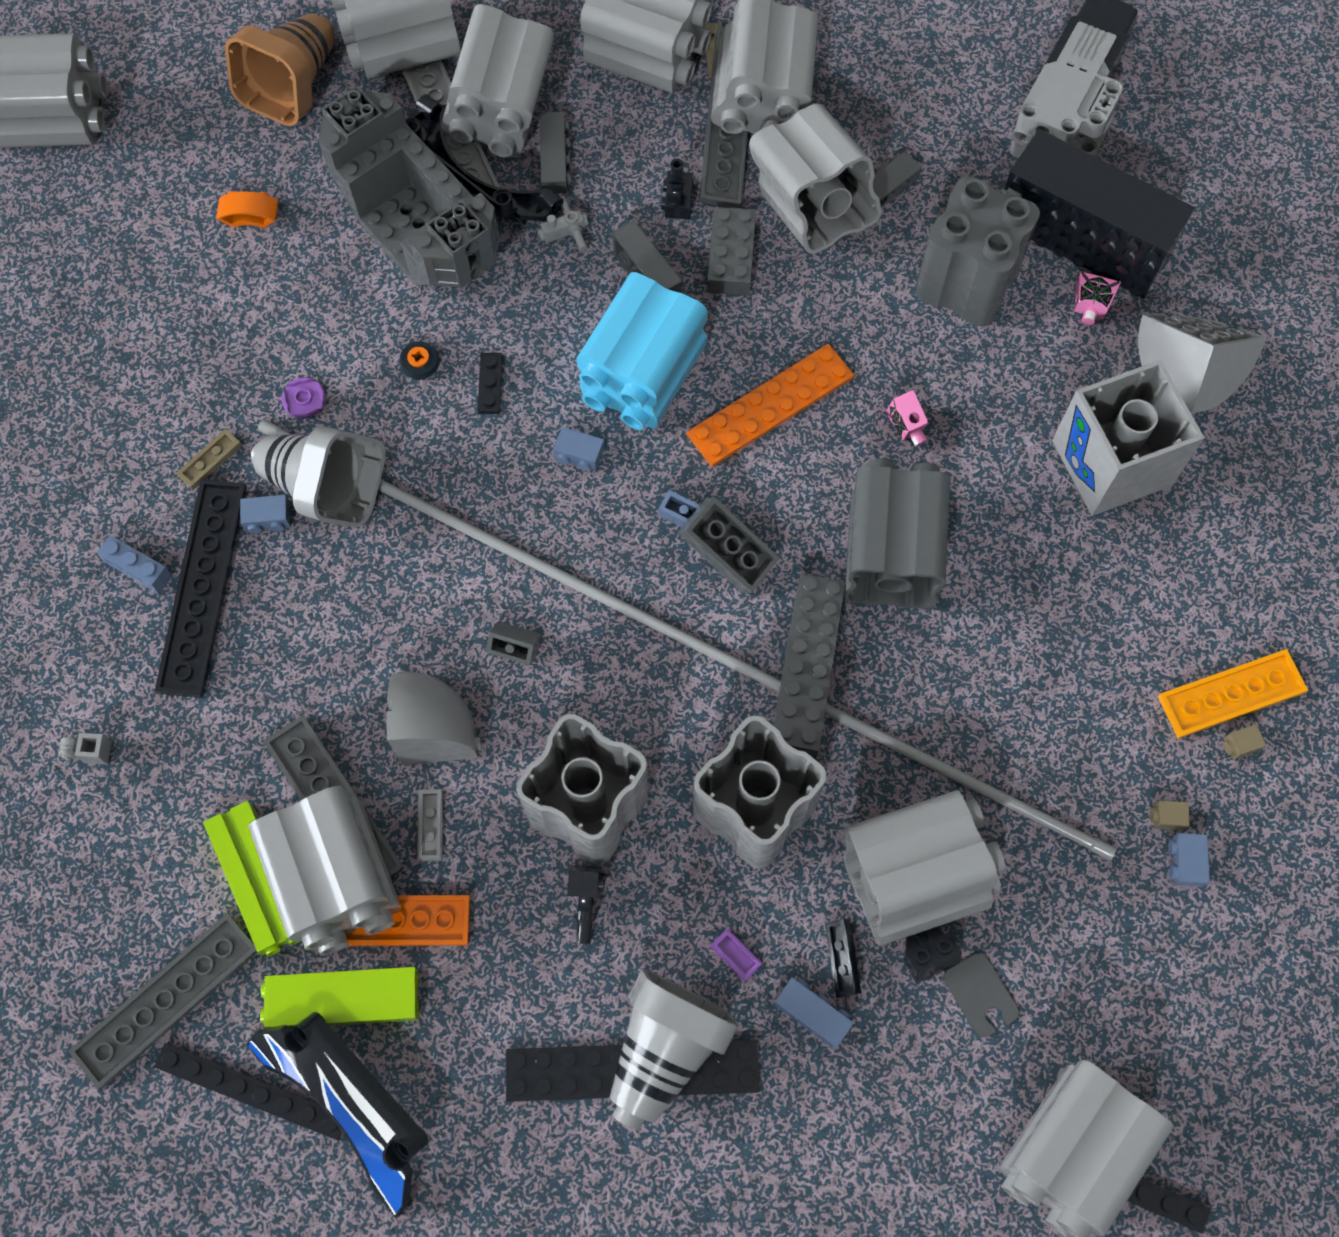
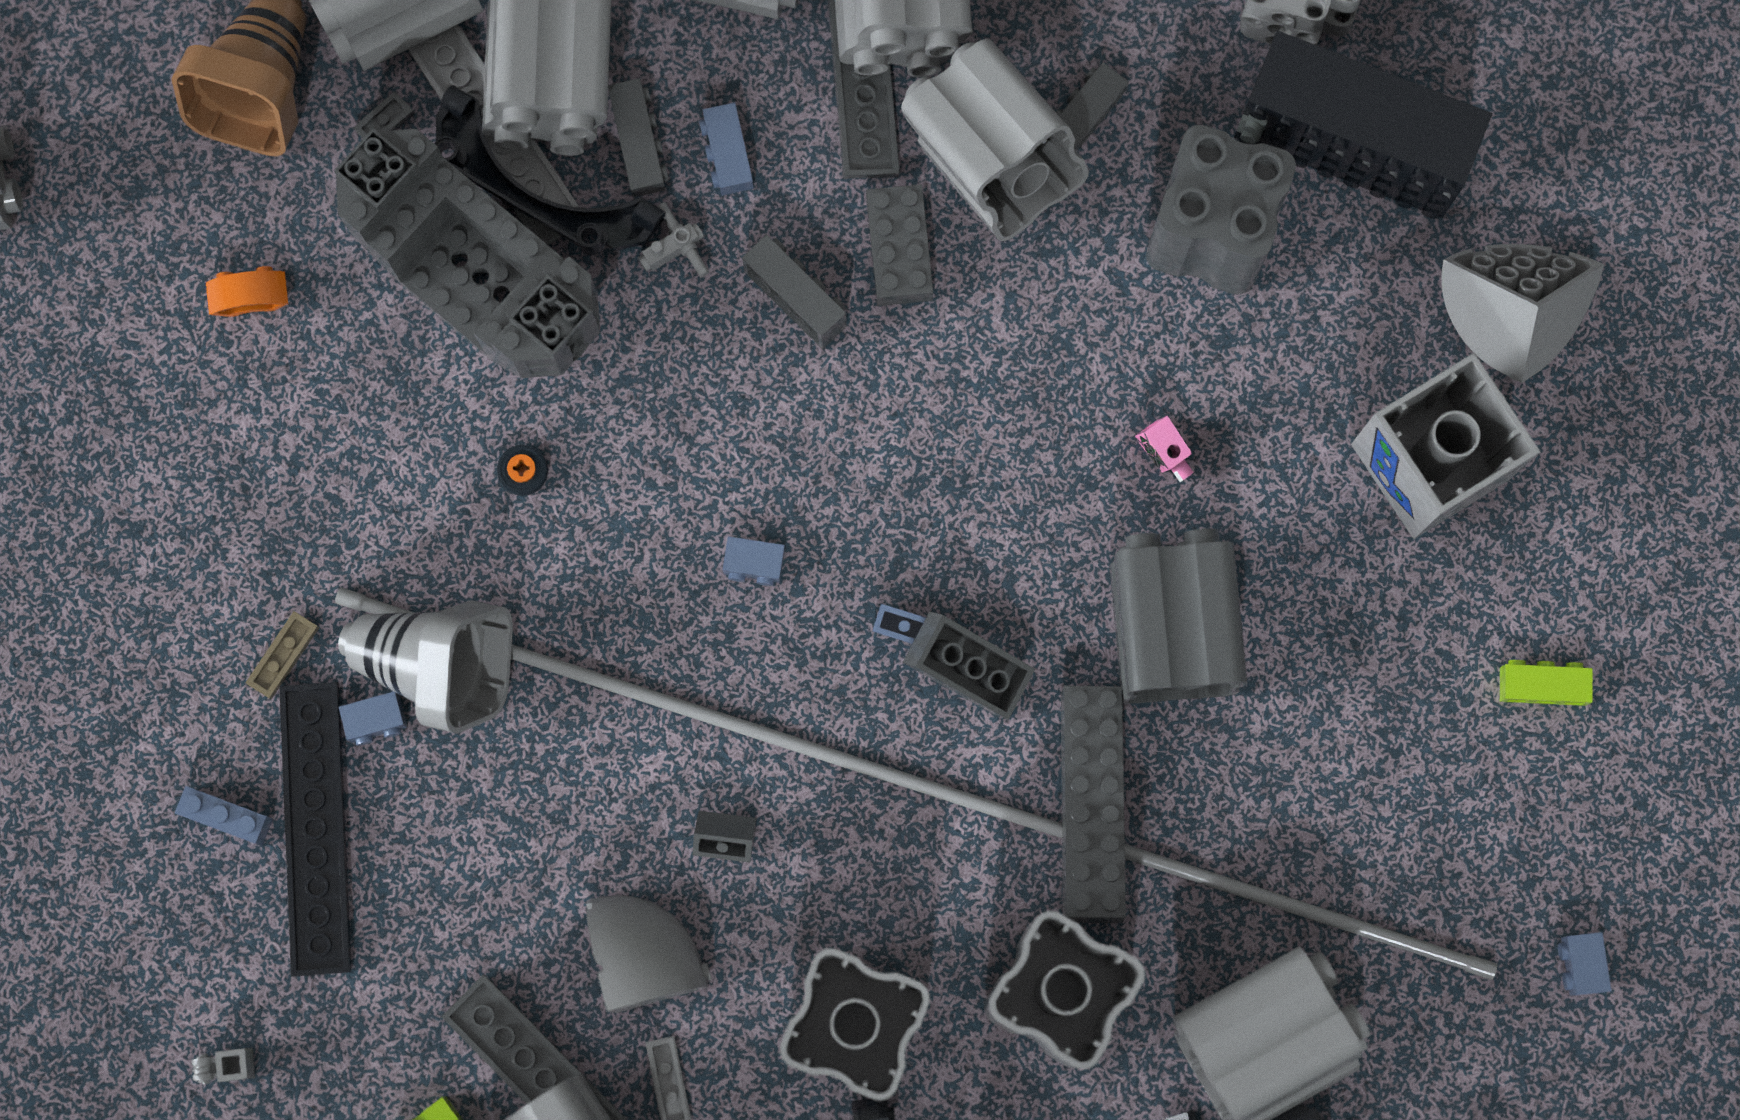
camera: 10 degrees left, 10 degrees up
(306, 403) = (383, 556): medium lavender tile -> none
(490, 383) = (620, 485): black plate -> none
(616, 169) = (726, 149): none -> sand blue brick
(642, 351) = (812, 423): medium azure brick -> none
(678, 192) = (815, 173): black brick -> none
(770, 405) = (986, 453): orange plate -> none
(1093, 296) = (1378, 231): torso -> none
(1170, 815) = (1555, 912): dark tan brick -> none
(1183, 639) = (1546, 683): none -> lime brick
(1232, 693) = (1613, 743): light orange plate -> none
(1244, 742) = (1633, 804): dark tan brick -> none

